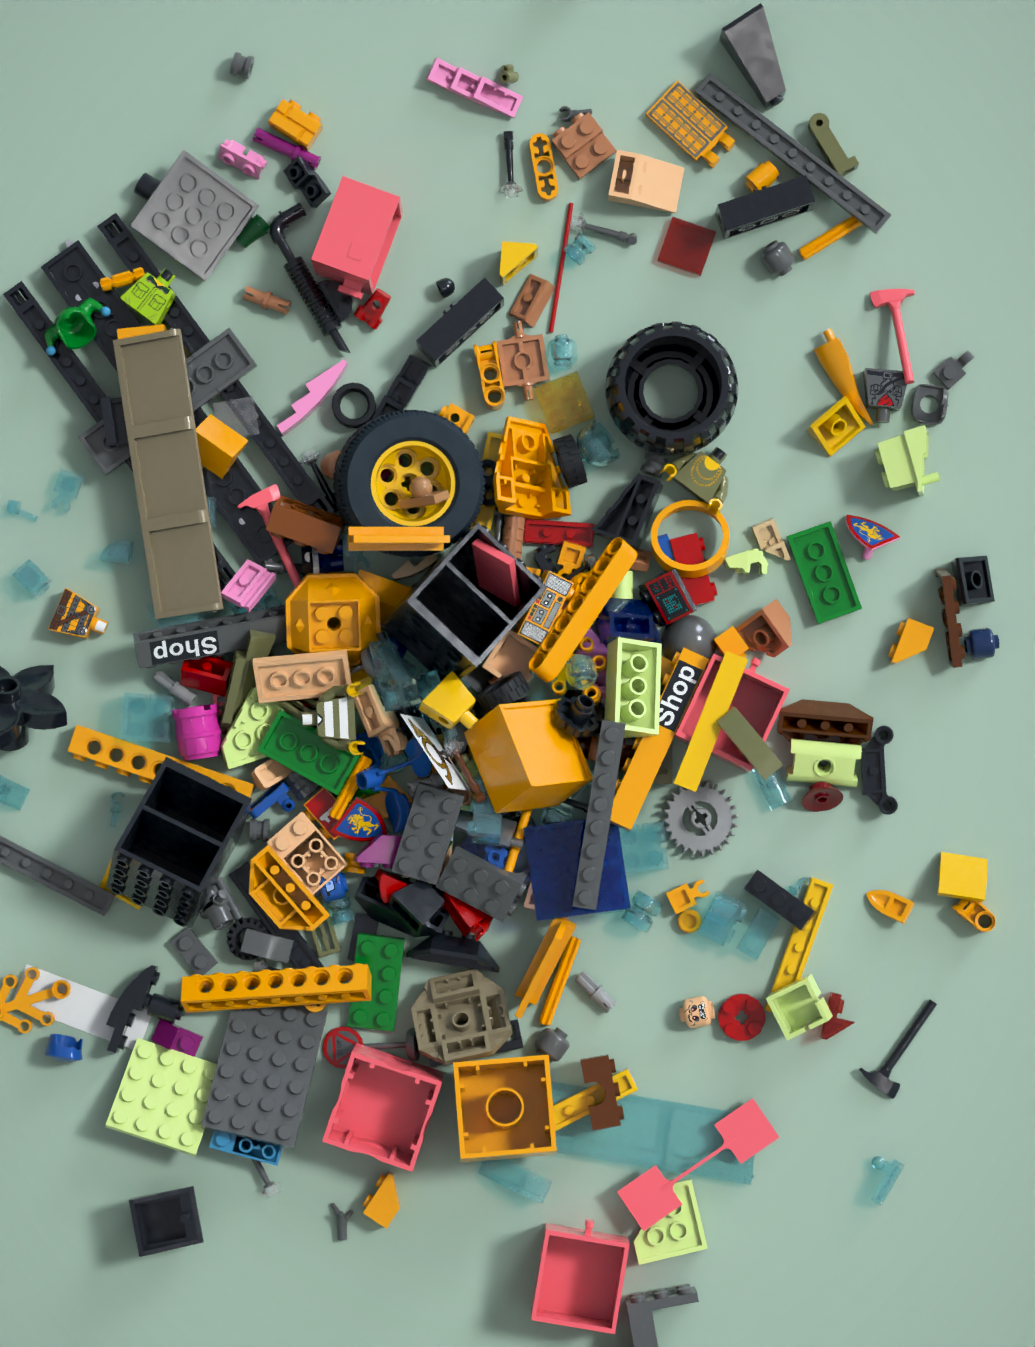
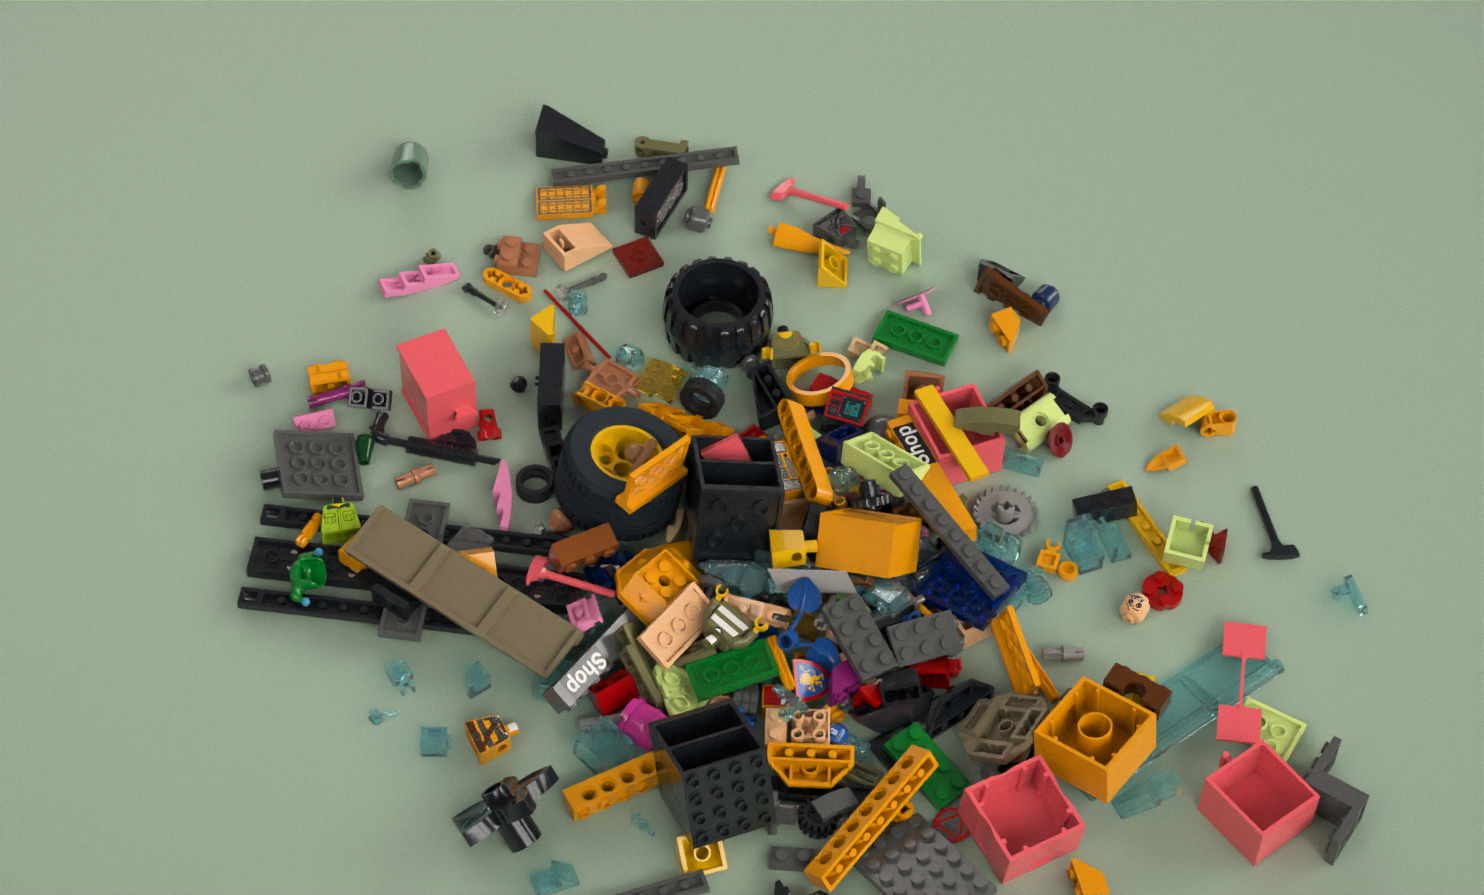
camera: 50 degrees left, 35 degrees down
(321, 825) = (793, 703): none -> clear light blue piece

